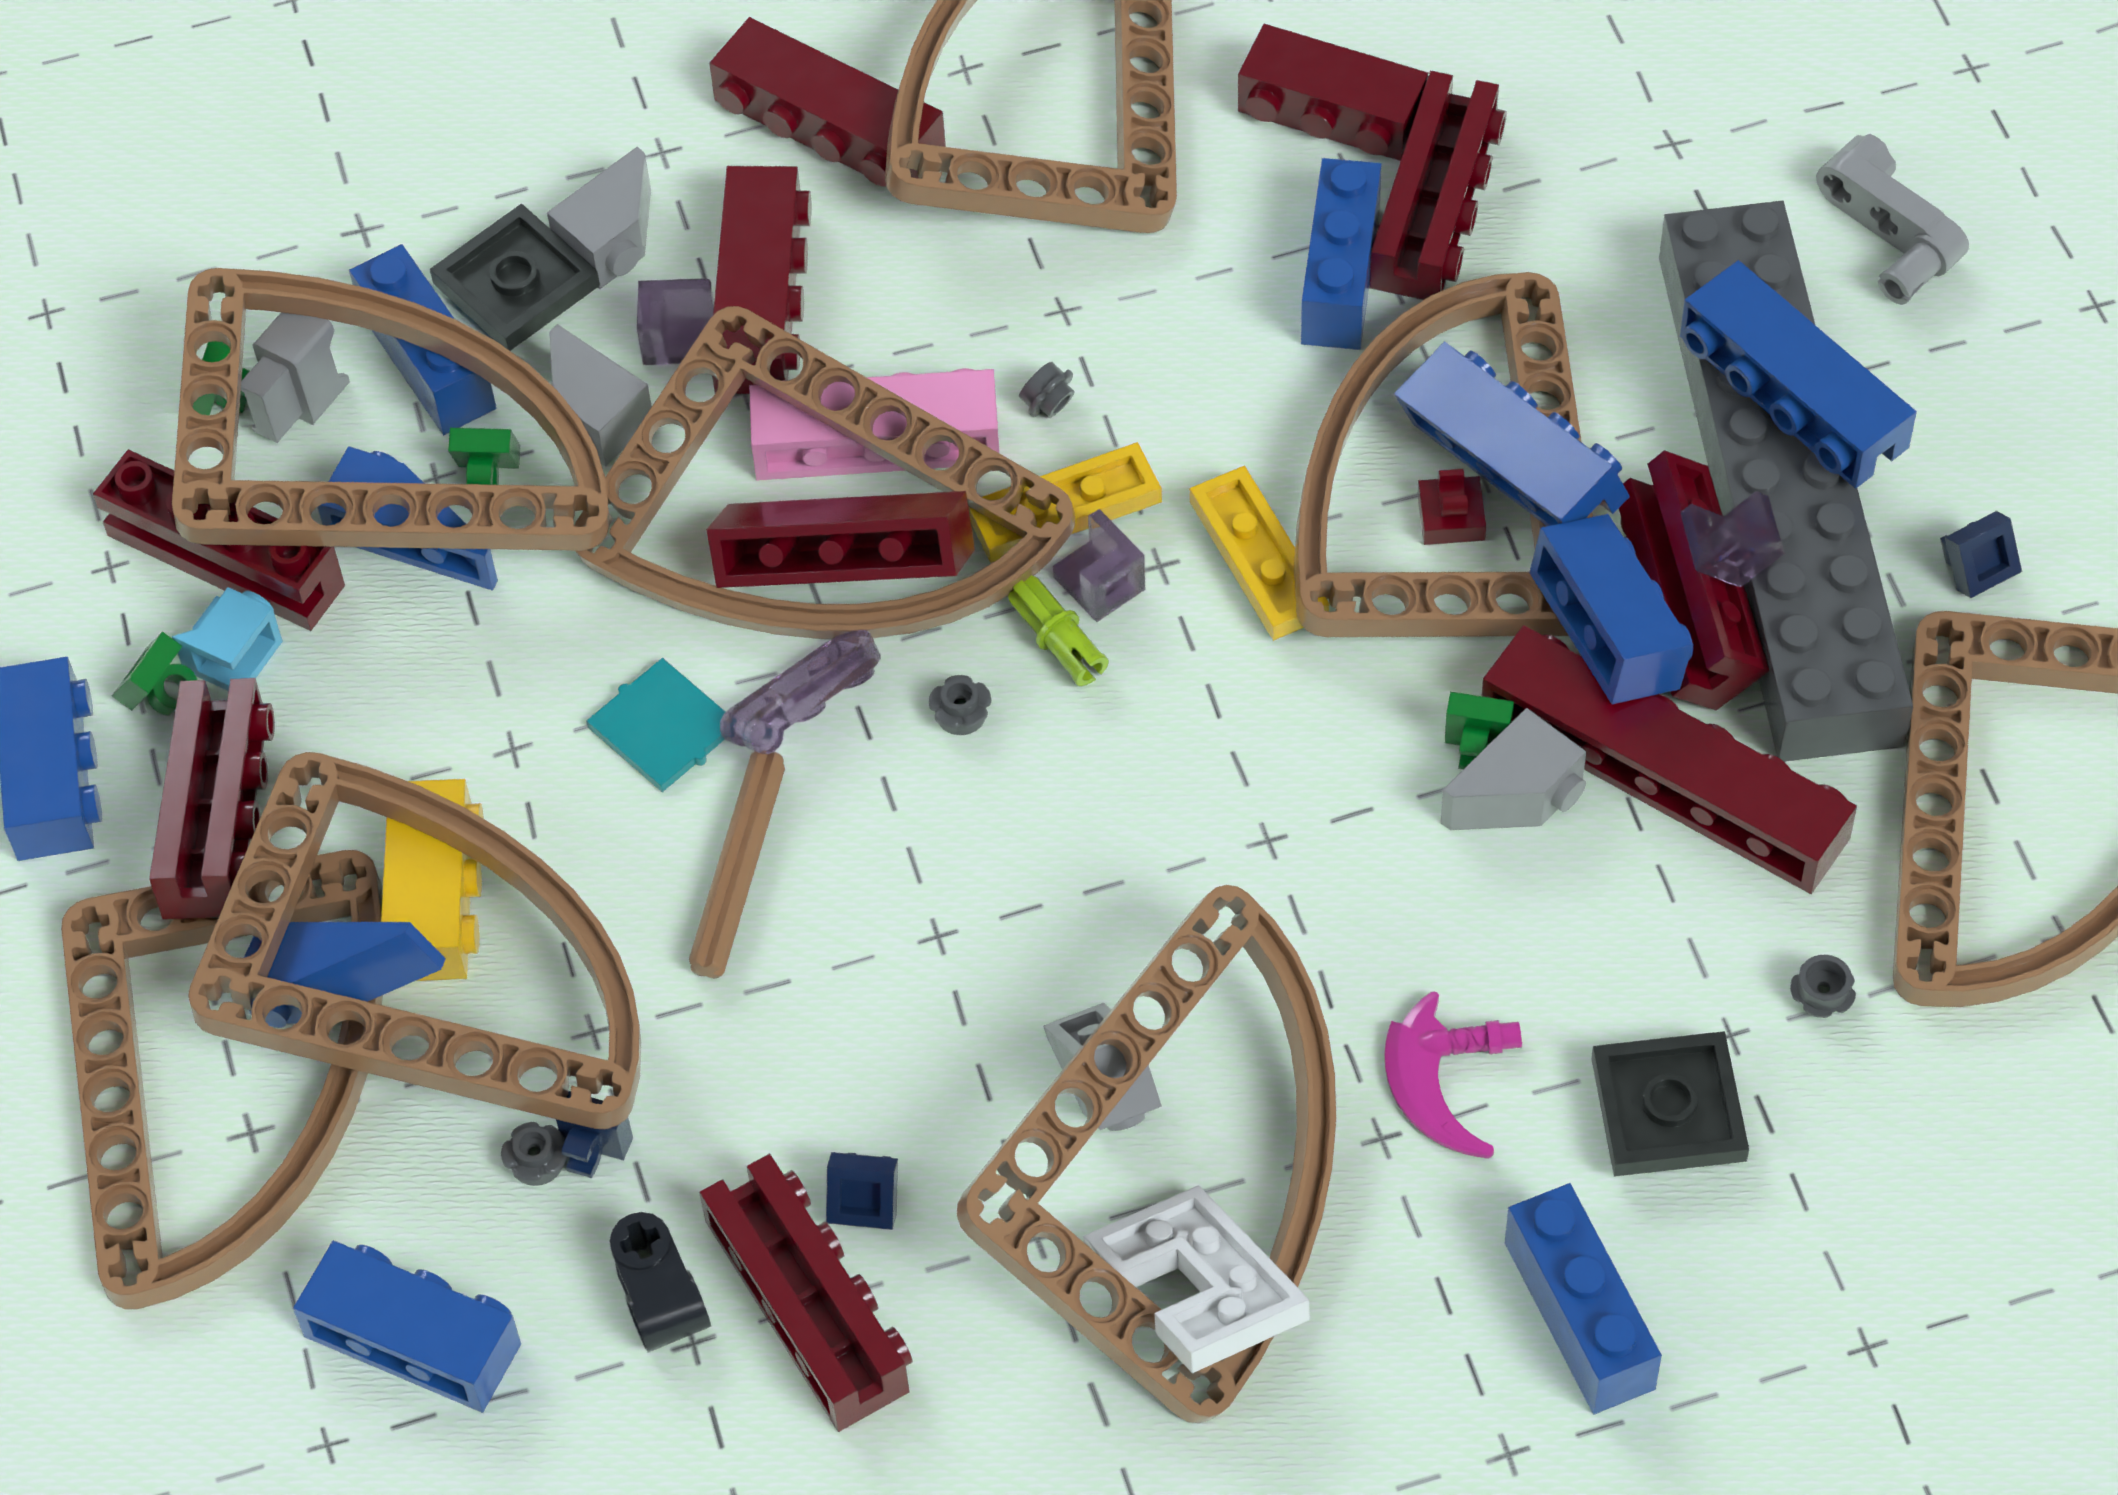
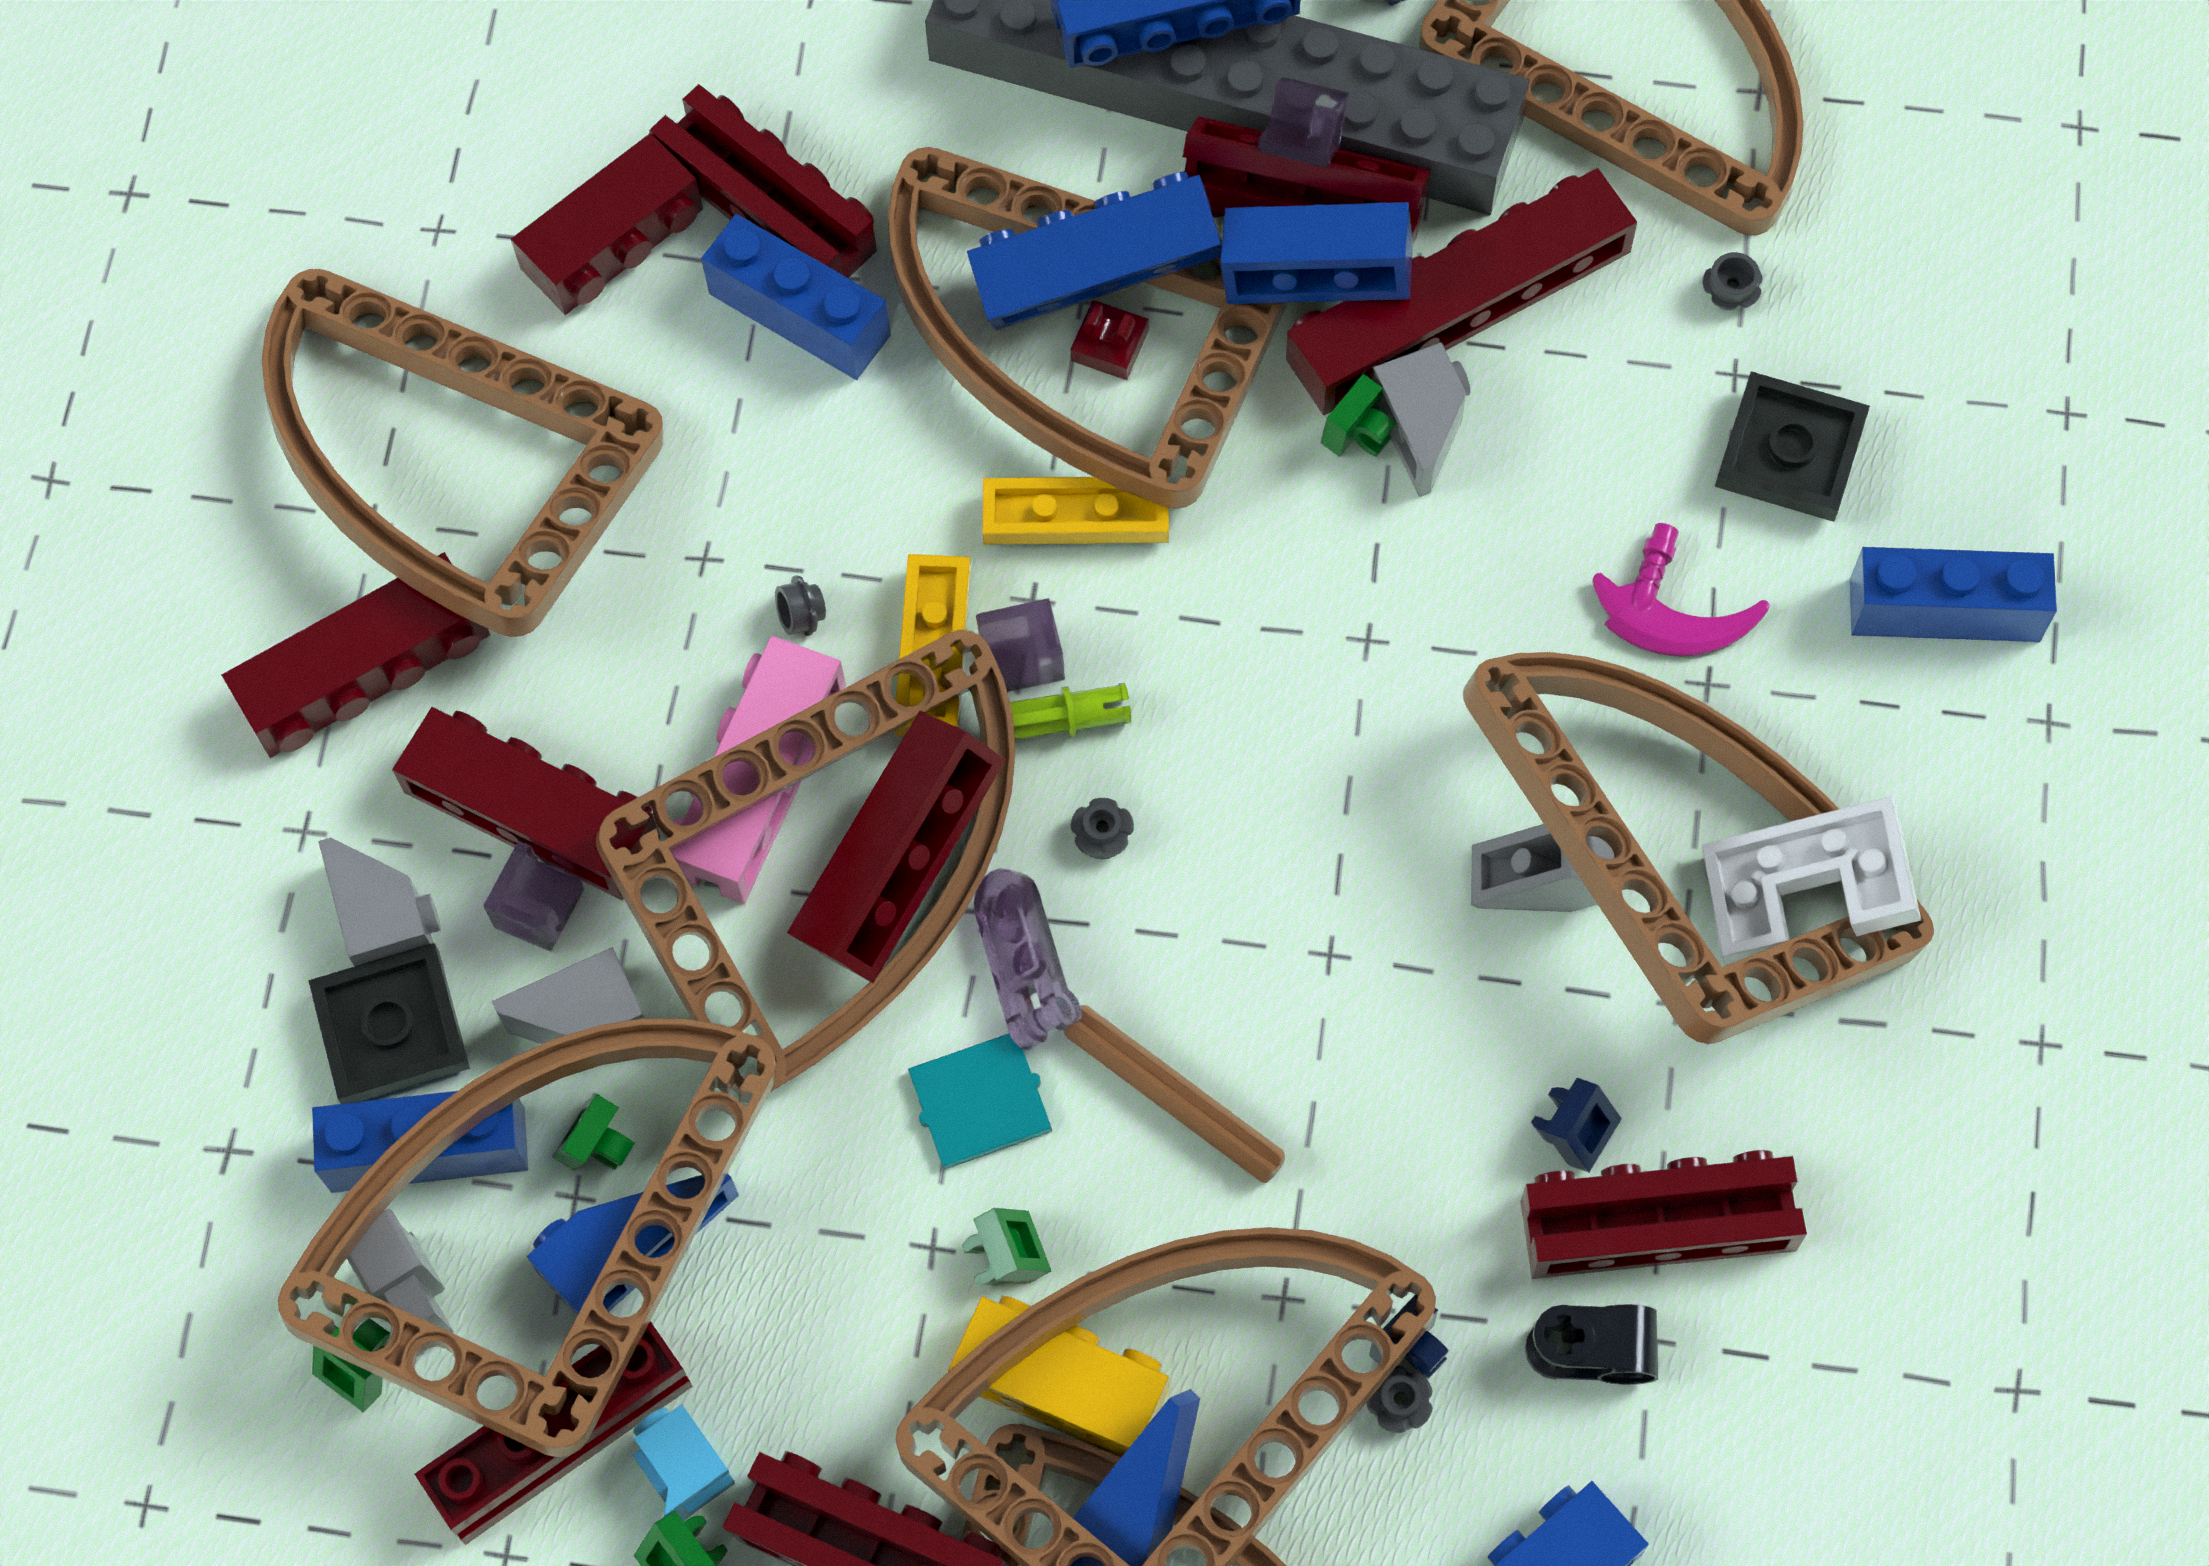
camera: 65 degrees left, 10 degrees up
(532, 793) = (1010, 1246): none -> green tile

